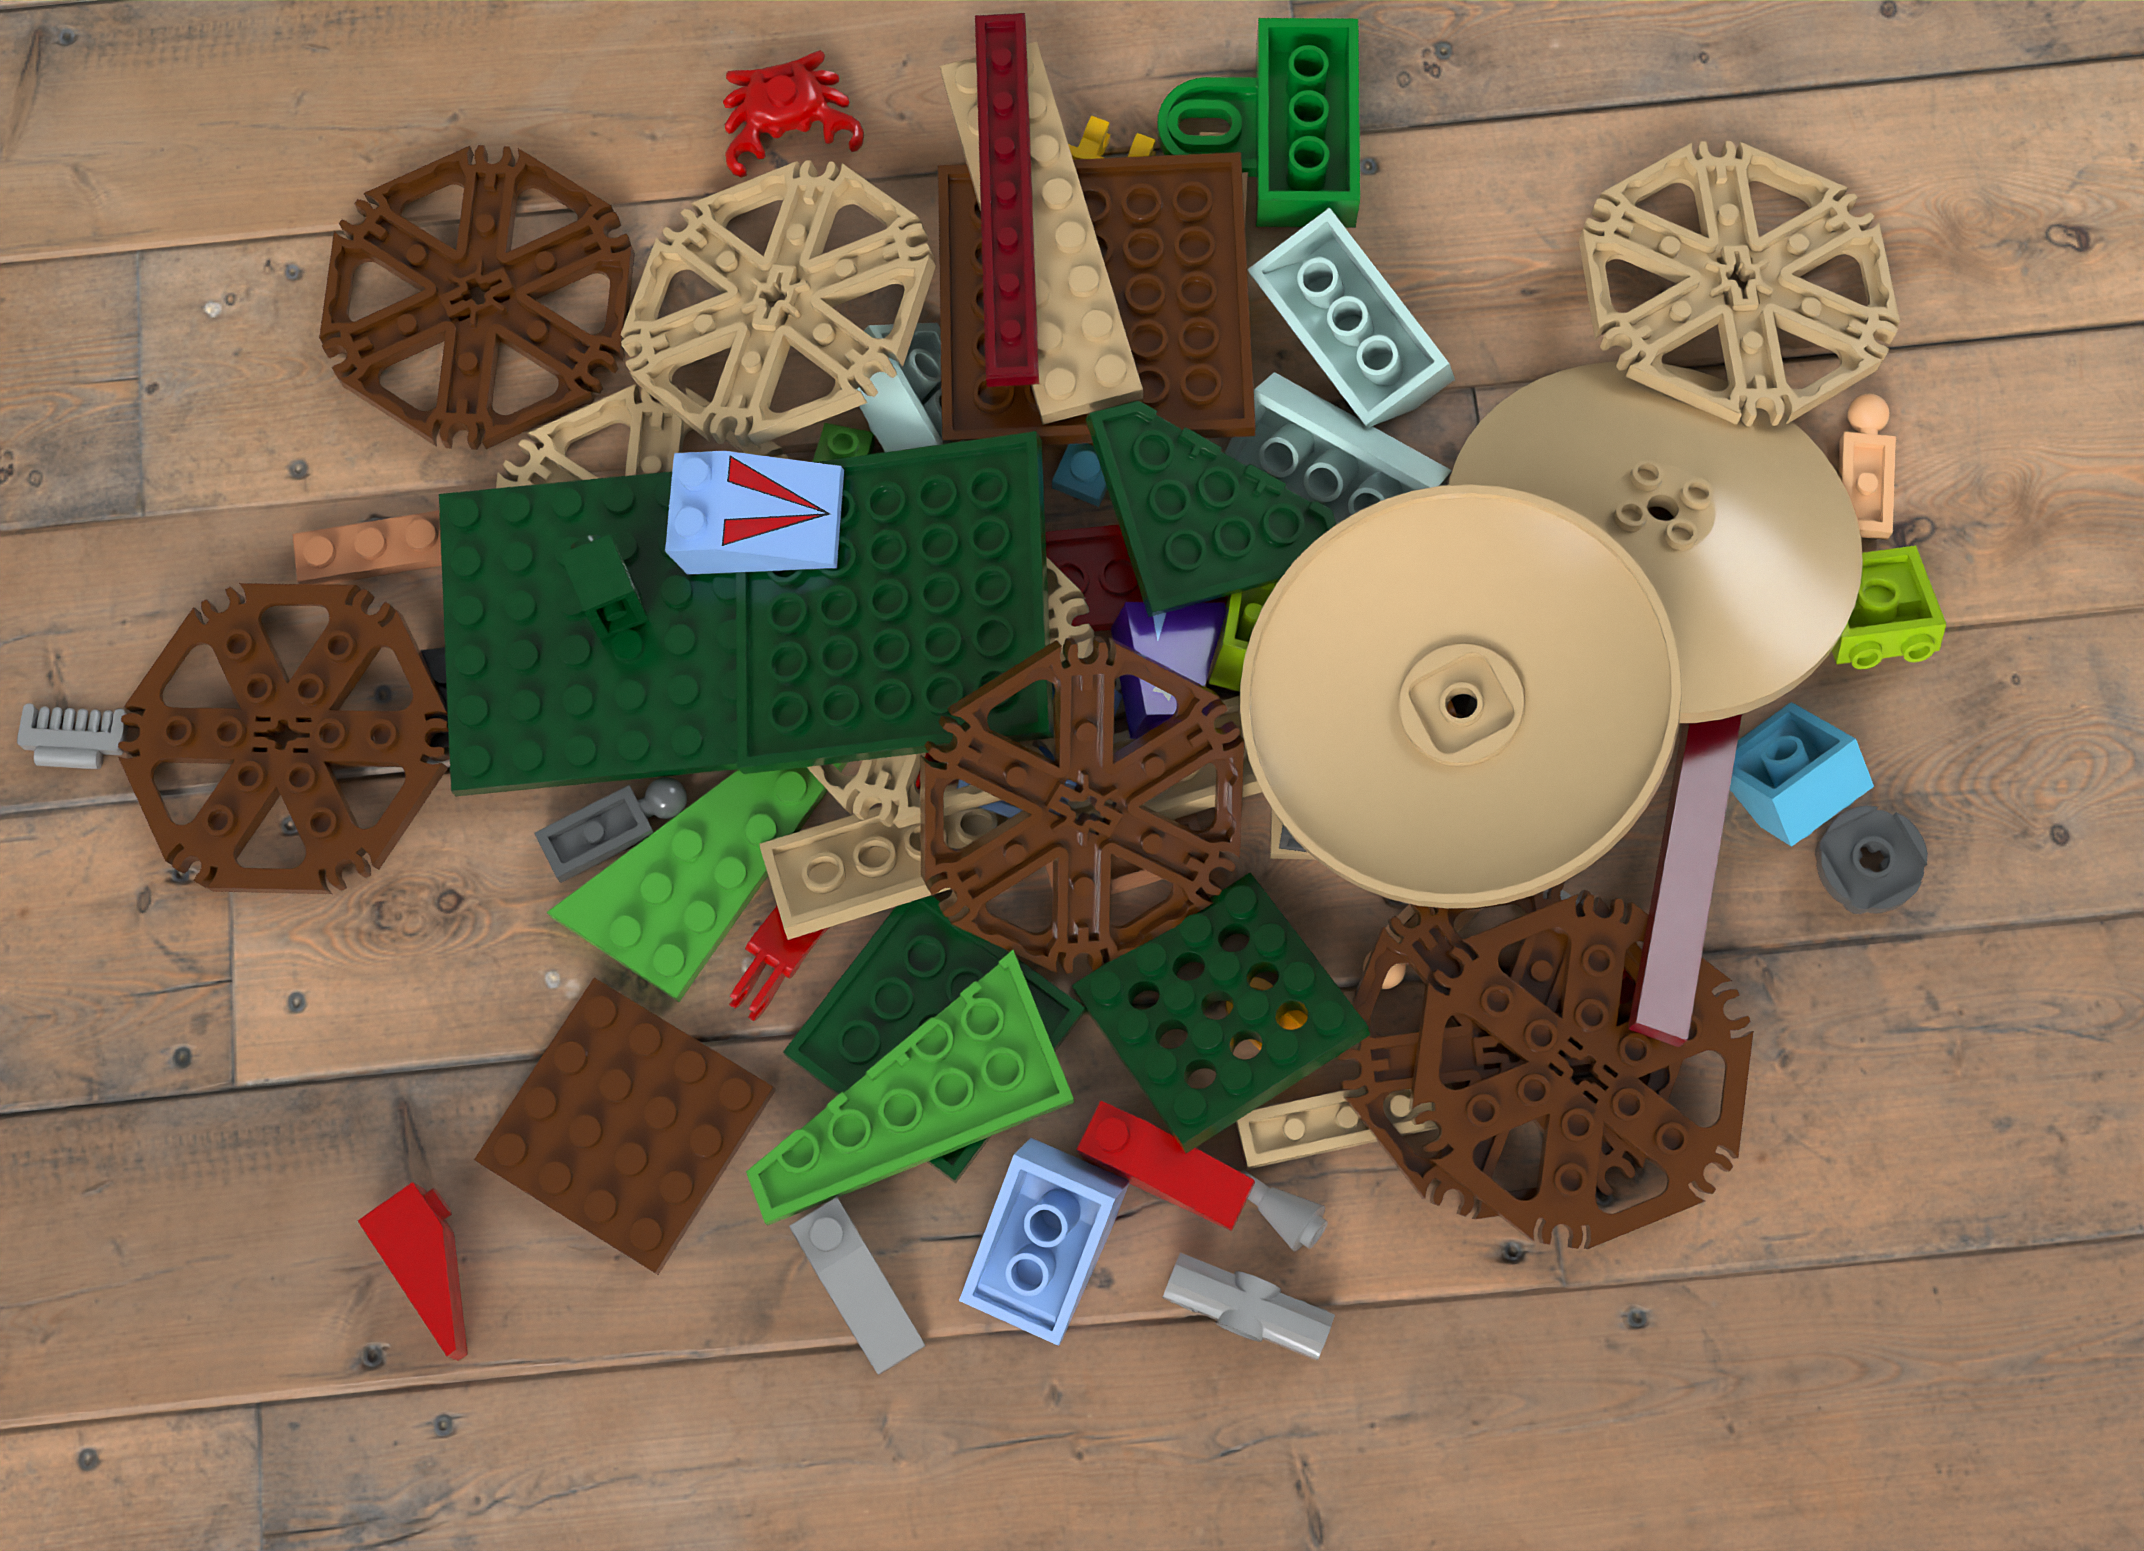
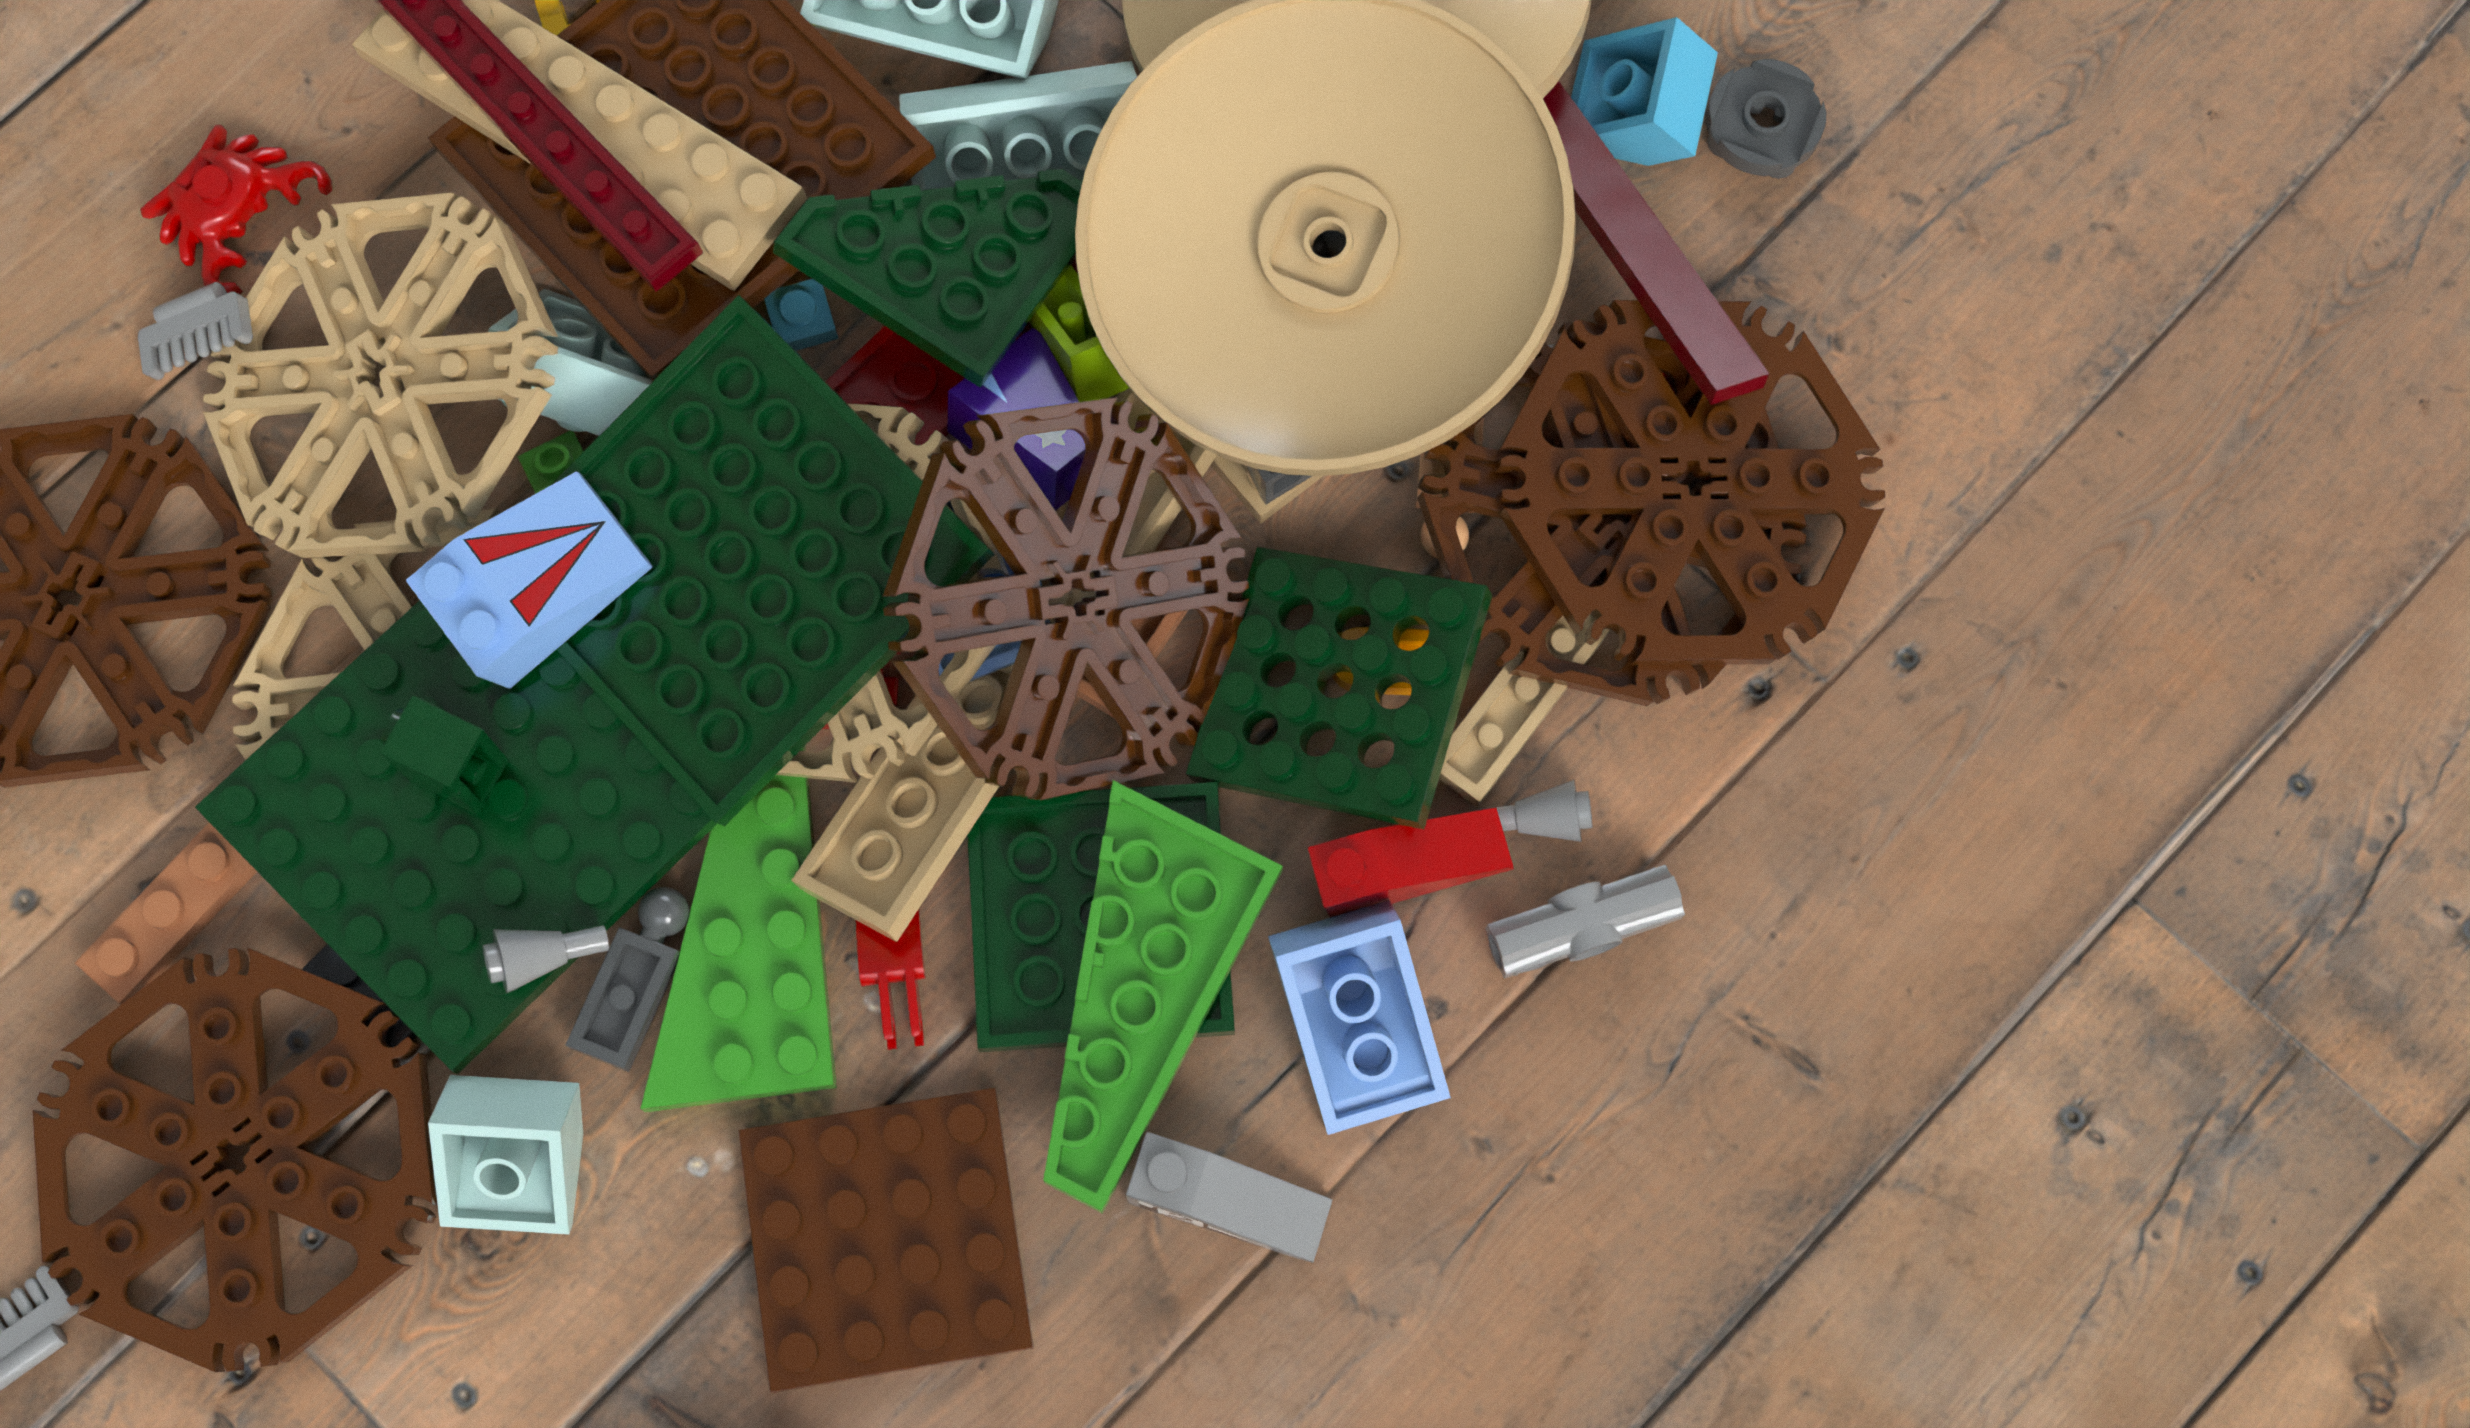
camera: 45 degrees left, 0 degrees up
(443, 871) = (507, 1153): none -> light aqua slope
(553, 757) = (529, 954): none -> light grey cone
(695, 177) = (190, 319): none -> light grey piece

